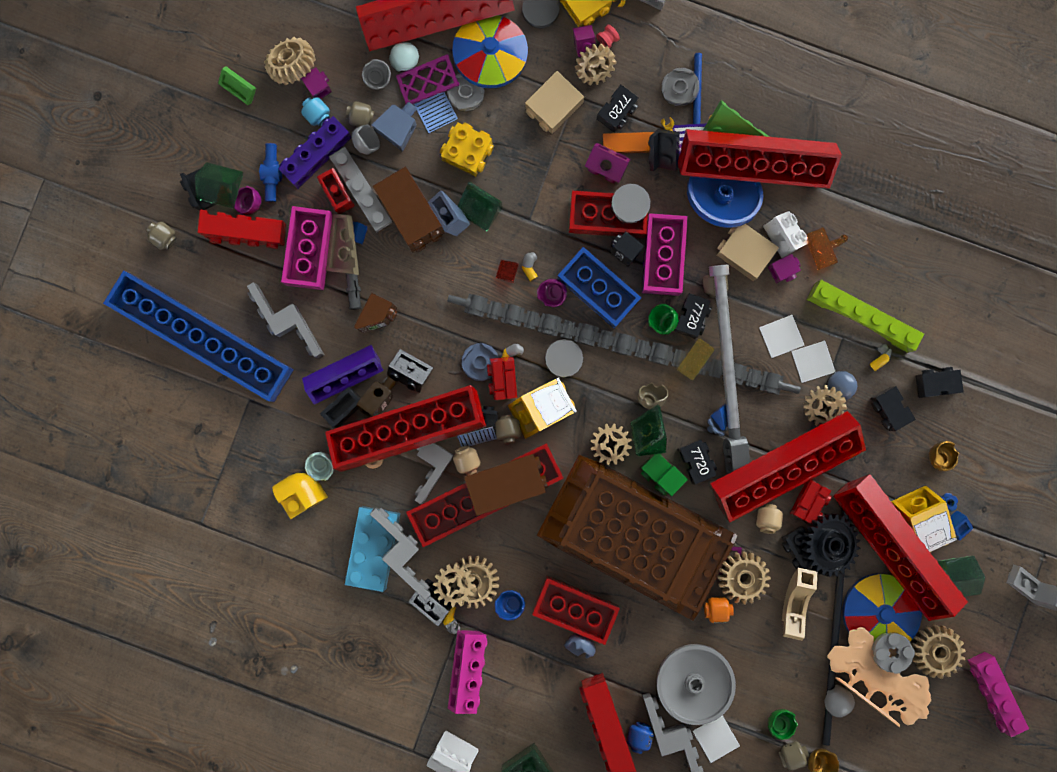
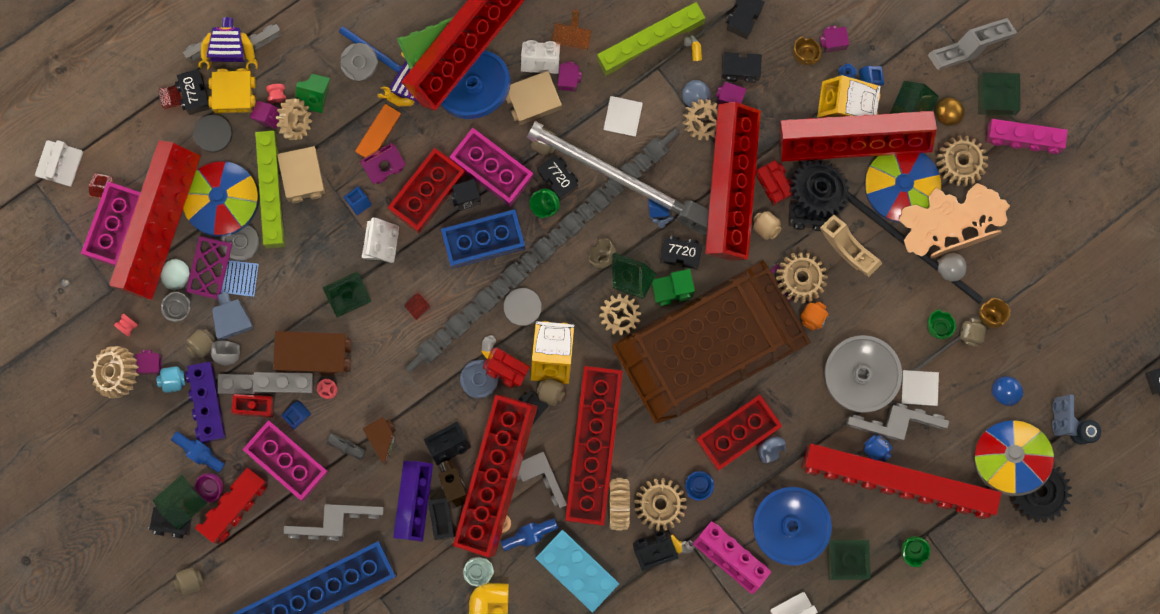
camera: 65 degrees left, 5 degrees down
(236, 85) = (102, 432): bright green plate -> none
(336, 45) = (126, 325): none -> coral wheel
(342, 247) = (304, 431): dark tan wing -> none
(378, 488) = (529, 534): none -> blue pin
(387, 240) = (325, 386): none -> coral wheel
(401, 552) = (595, 545): light grey bracket -> none
(445, 580) = (663, 512): tan gear -> none
(448, 214) = (336, 322): sand blue slope -> none
(449, 548) = (619, 504): none -> tan gear
(466, 460) = (554, 444): tan head -> none
(467, 148) = (290, 272): yellow brick -> none
(477, 437) = (541, 421): light blue sticker -> none
(504, 99) = (269, 189): none -> lime arch
(506, 484) = (596, 418): reddish brown brick -> none
(526, 706) = (792, 526): none -> blue dish
(527, 265) = (423, 285): arm -> none
(541, 204) = (380, 240): none -> white bracket
(552, 292) = (461, 280): magenta hair -> none
(563, 164) = (357, 200): none -> blue slope
(615, 113) = (345, 130): black brick -> none
(629, 66) = (313, 92): none -> green brick
(630, 203) = (431, 166): light grey tile -> none
(664, 149) = (404, 110): black bracket -> none
(695, 359) = (595, 198): clear yellow tile -> none
(813, 361) = (661, 104): white sticker -> none
(863, 414) = (730, 93): none -> magenta brick
(881, 652) = (932, 206): light grey plate -> none
(970, 473) = (834, 39): none -> magenta brick
(974, 613) = (949, 111): none -> pearl gold hair
(1019, 646) = (999, 94): none -> clear green brick

